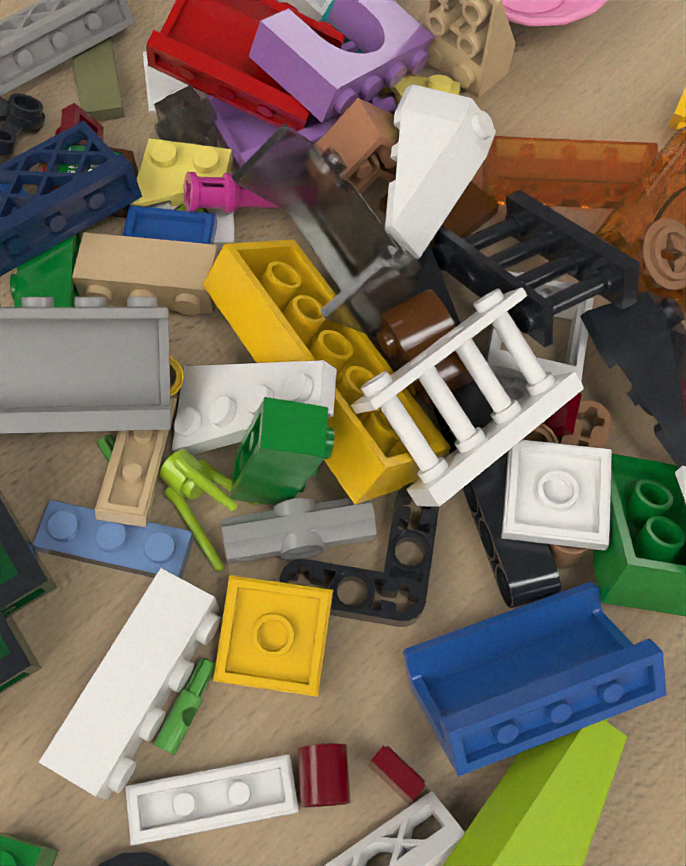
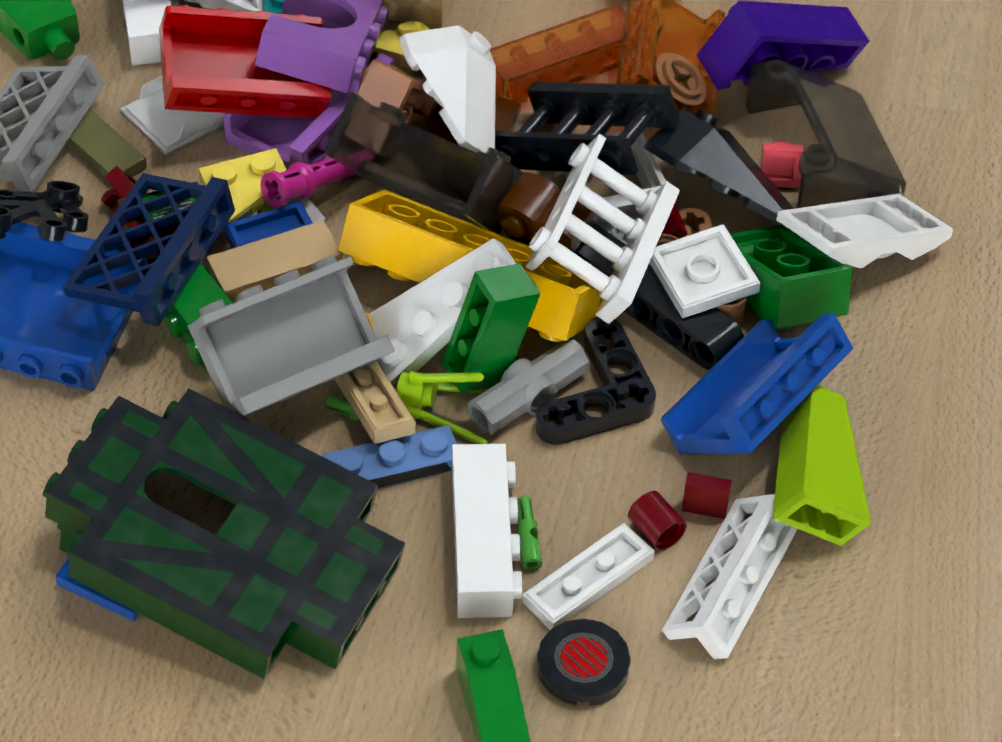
camera: 30 degrees left, 15 degrees down
(186, 118) = (217, 140): clear smoke brick -> none
(273, 635) = (560, 457): yellow tile -> none

